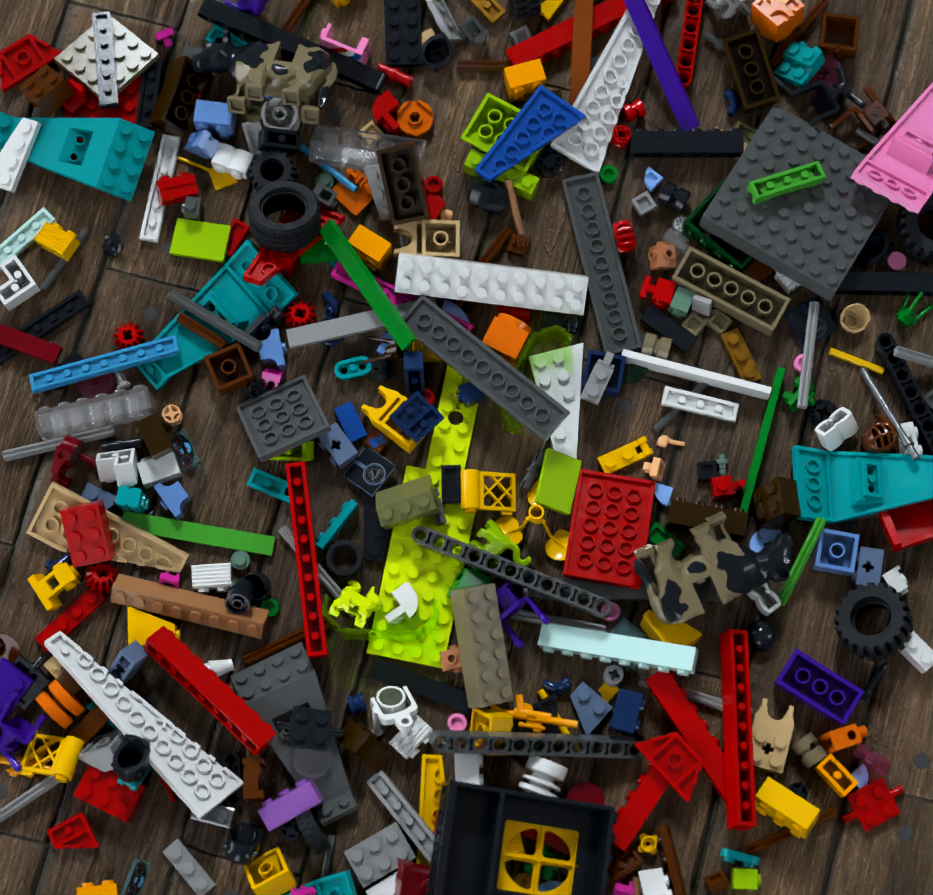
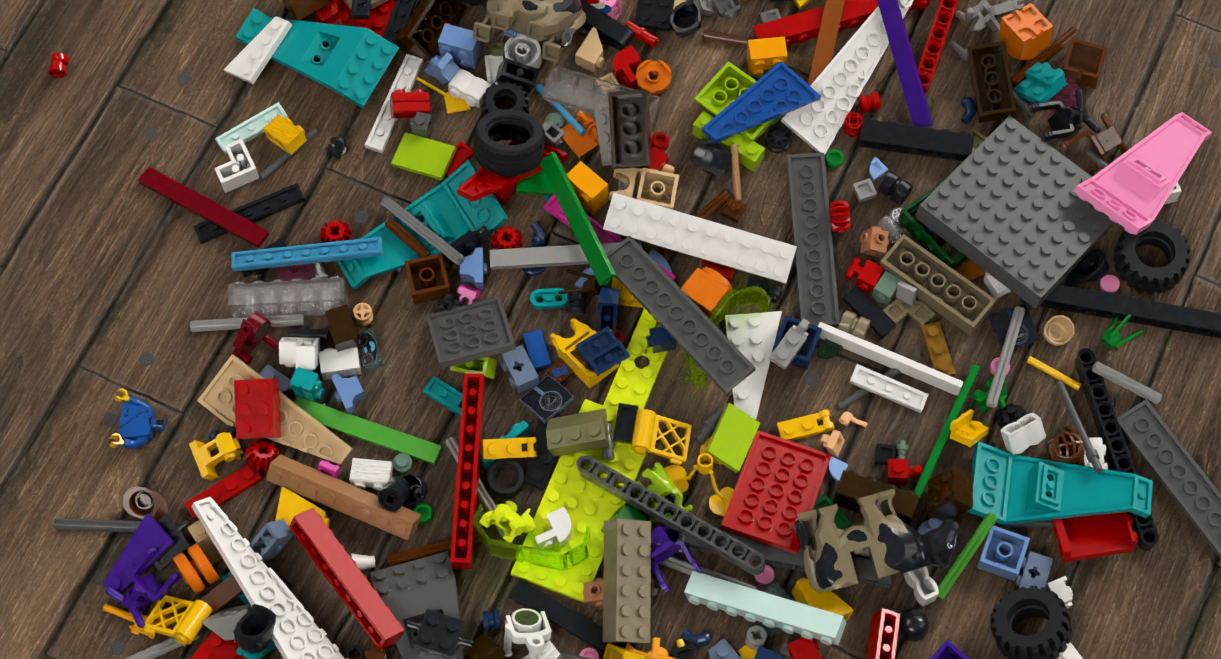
camera: 10 degrees right, 10 degrees down
(341, 530) = (508, 448): none -> yellow plate
(348, 103) = (590, 52): none -> tan slope
(783, 435) = (966, 430): none -> yellow bracket
(786, 182) = (1008, 186): bright green piece -> none

